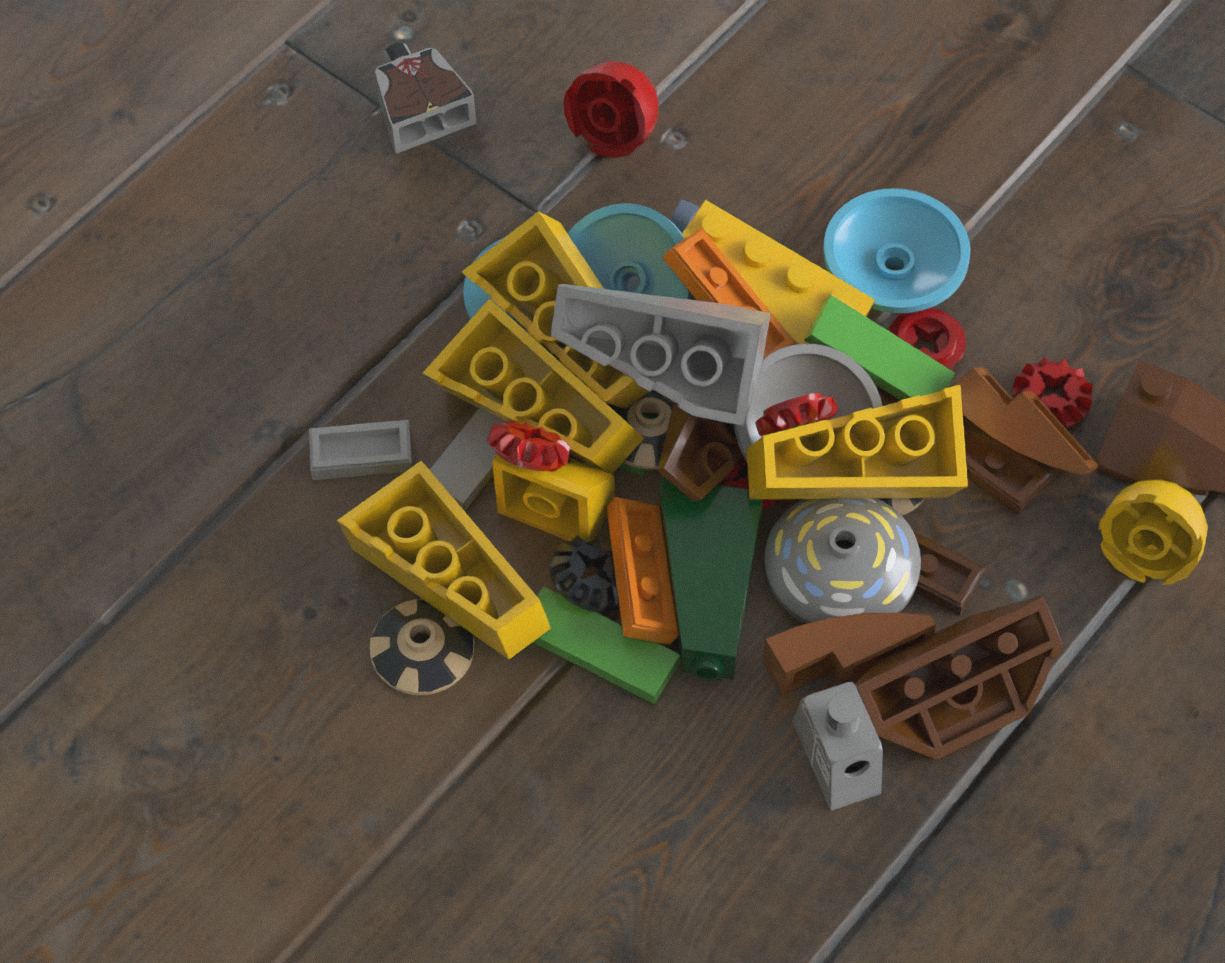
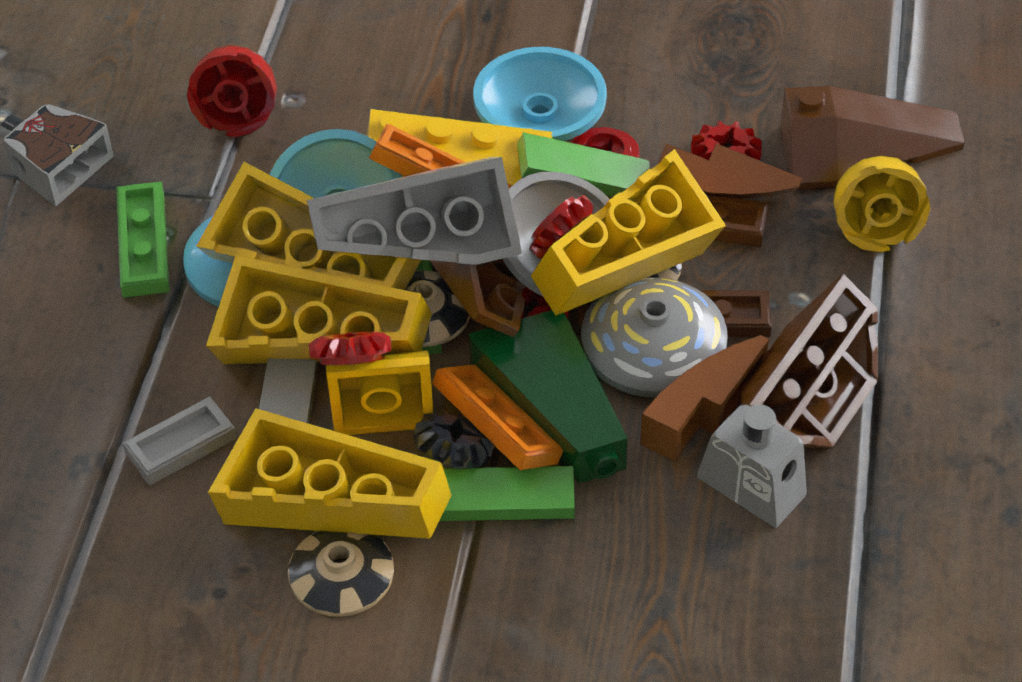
camera: 30 degrees left, 10 degrees down
(447, 227) = (142, 239): none -> bright green tile

